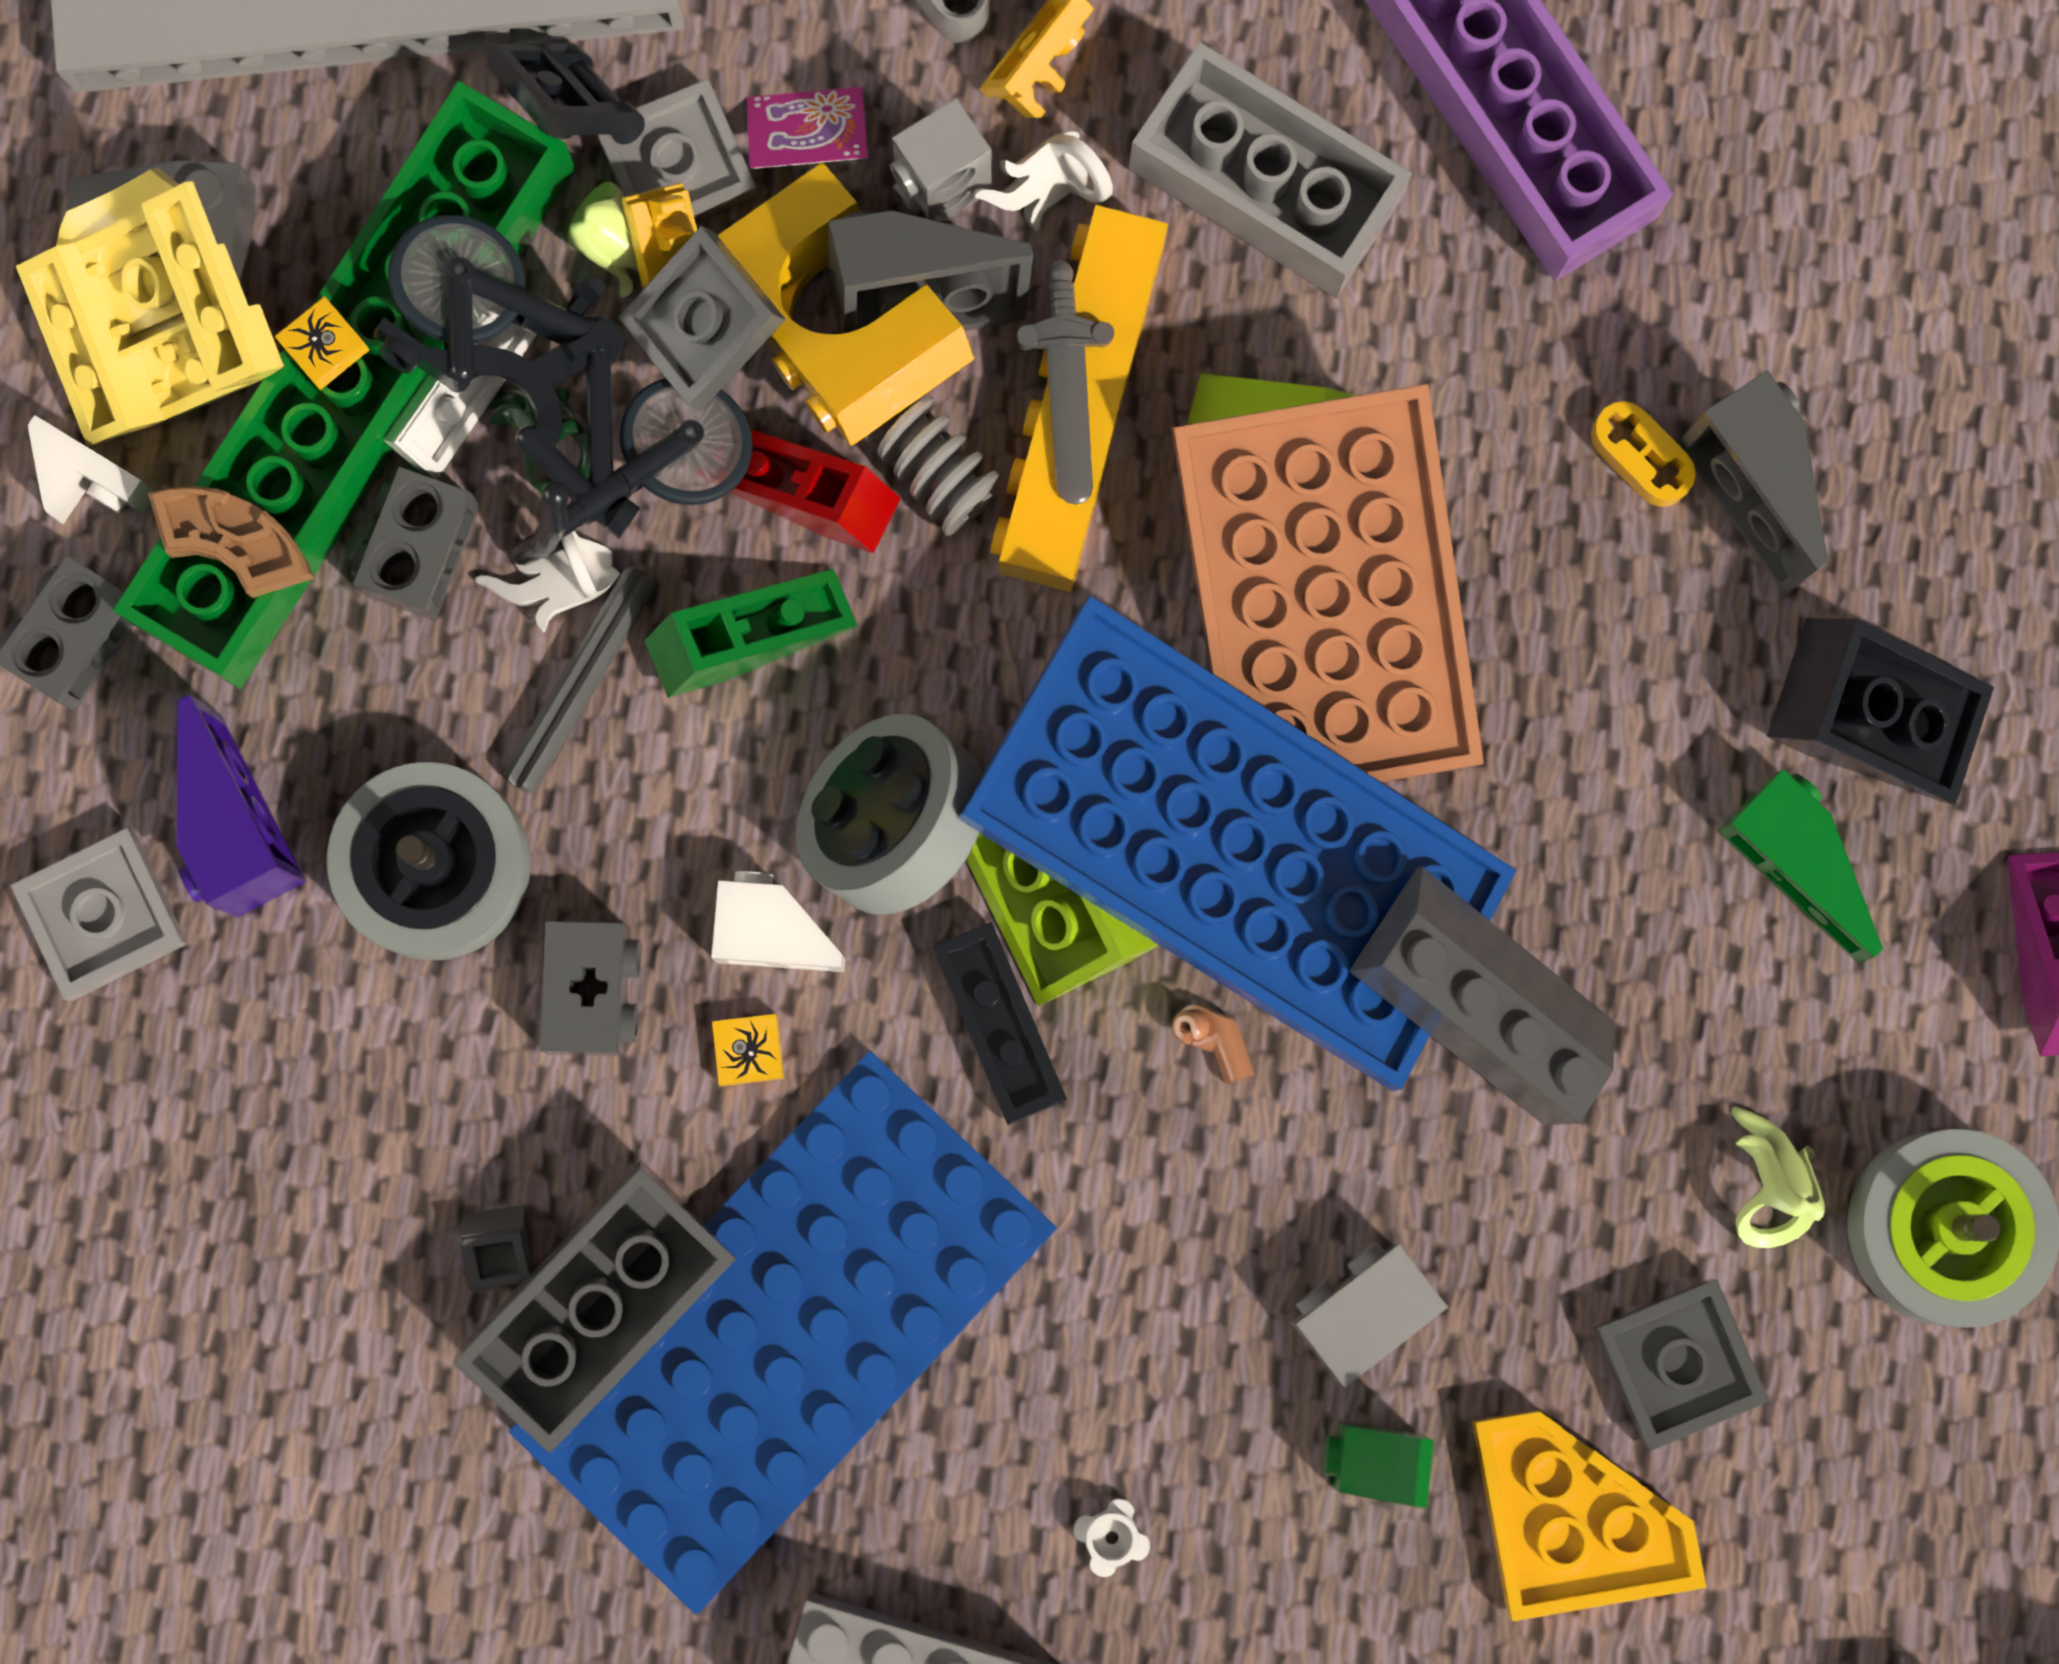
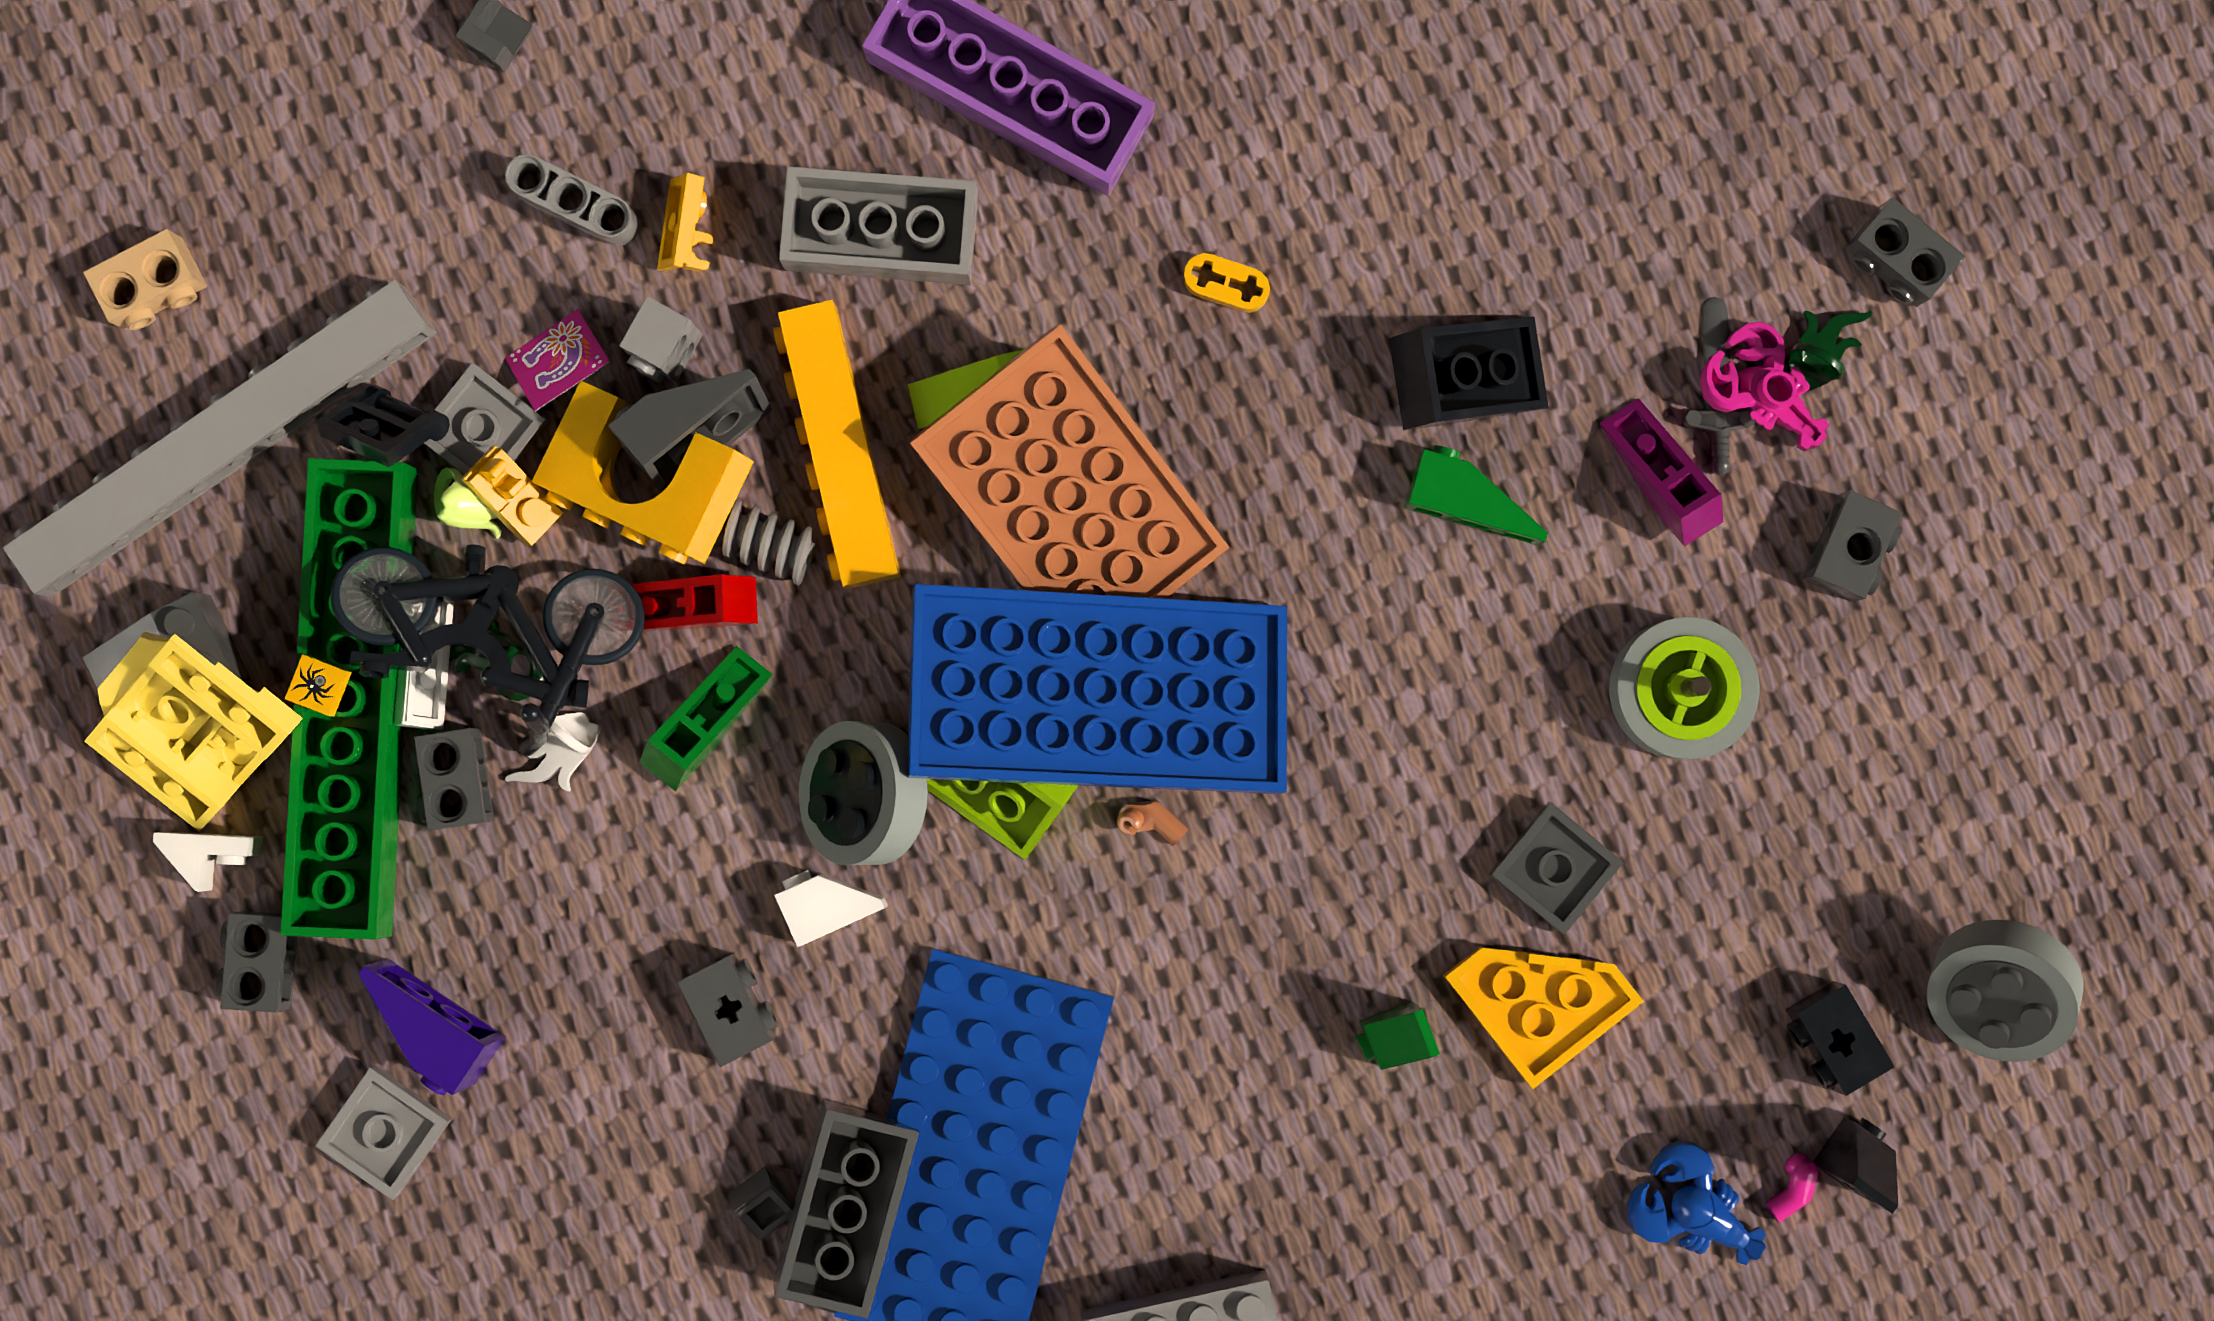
camera: 30 degrees left, 5 degrees up
(232, 532) = (331, 842): medium nougat tile -> none
(428, 861) = (579, 983): wheel -> none
(579, 680) = (611, 809): dark grey axle -> none
(701, 318) = (559, 533): dark grey plate -> none
(748, 1050) = (853, 990): yellow tile -> none
(999, 1023) = (1006, 886): black plate -> none
(1048, 175) = (734, 307): white piece -> none
(1065, 342) = (807, 417): dark grey sword -> none
(1107, 1556) = (1267, 1172): white plate -> none
(1367, 1312) = (1339, 945): light grey brick -> none
(1489, 1002) = (1313, 703): dark grey slope -> none
(1761, 473) = (1305, 255): dark grey slope -> none
(1786, 1181) = (1563, 716): yellowish green piece -> none

